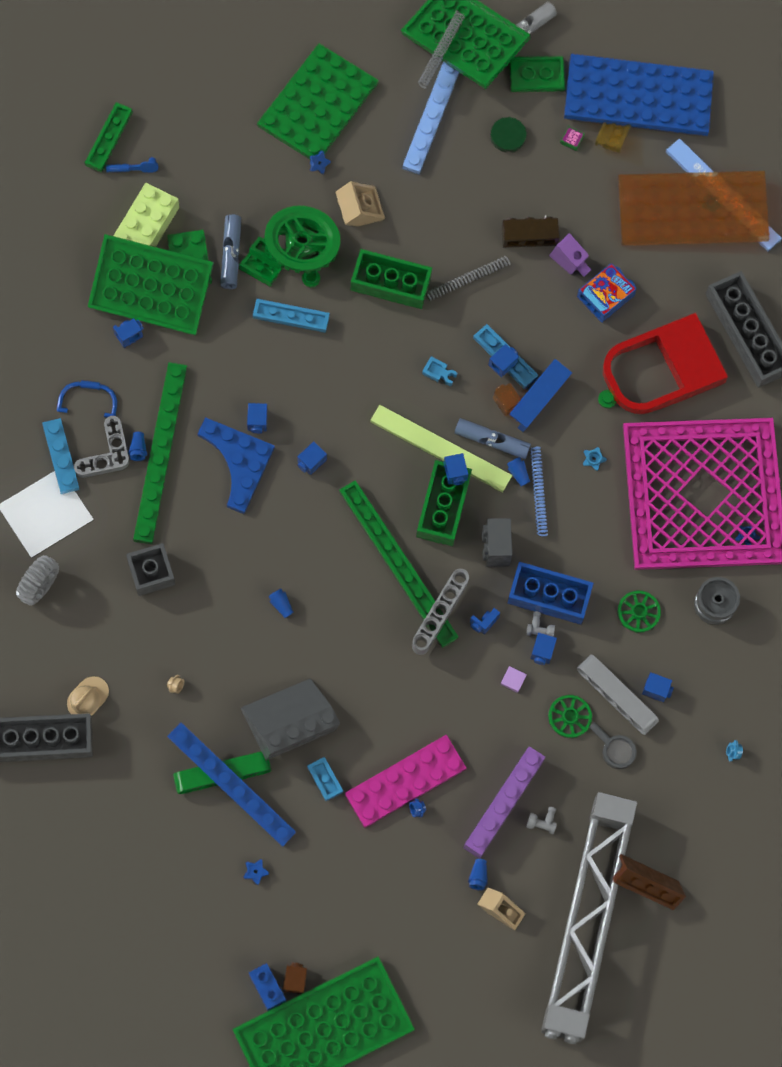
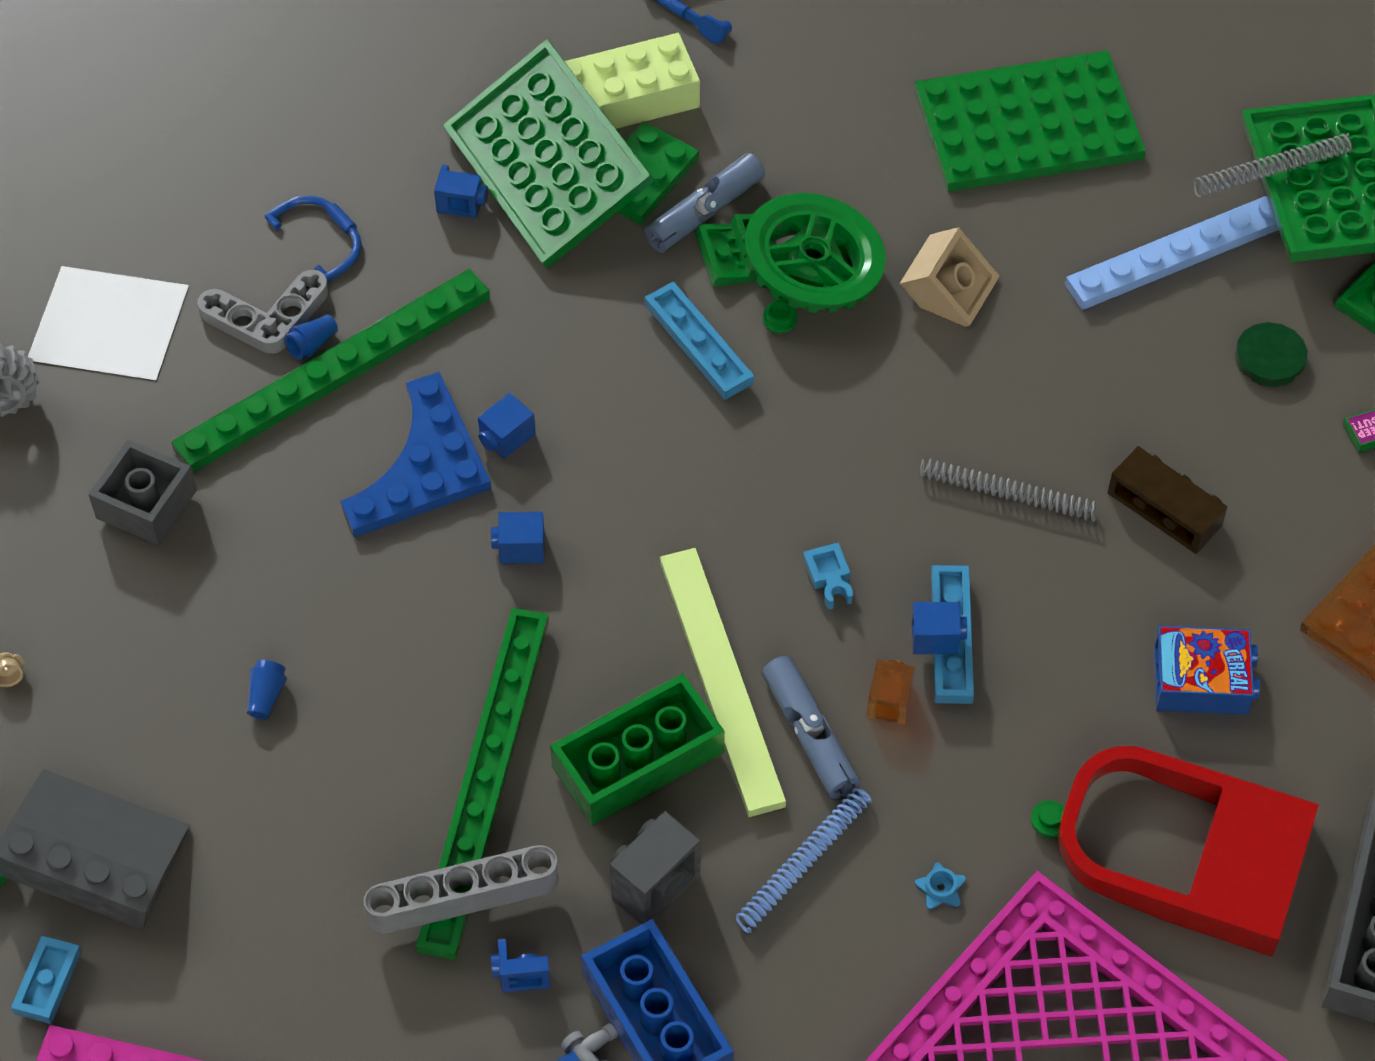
camera: 50 degrees right, 15 degrees down
(60, 456) = (204, 270): dark azure plate -> none
(314, 162) = (946, 177): blue plate -> none
(391, 279) = (888, 398): green brick -> none
(456, 469) = (694, 704): blue brick -> none
(519, 472) = (802, 802): blue cone -> none
(540, 394) = (945, 723): blue panel -> none
(571, 256) = (1196, 572): medium lavender torso -> none

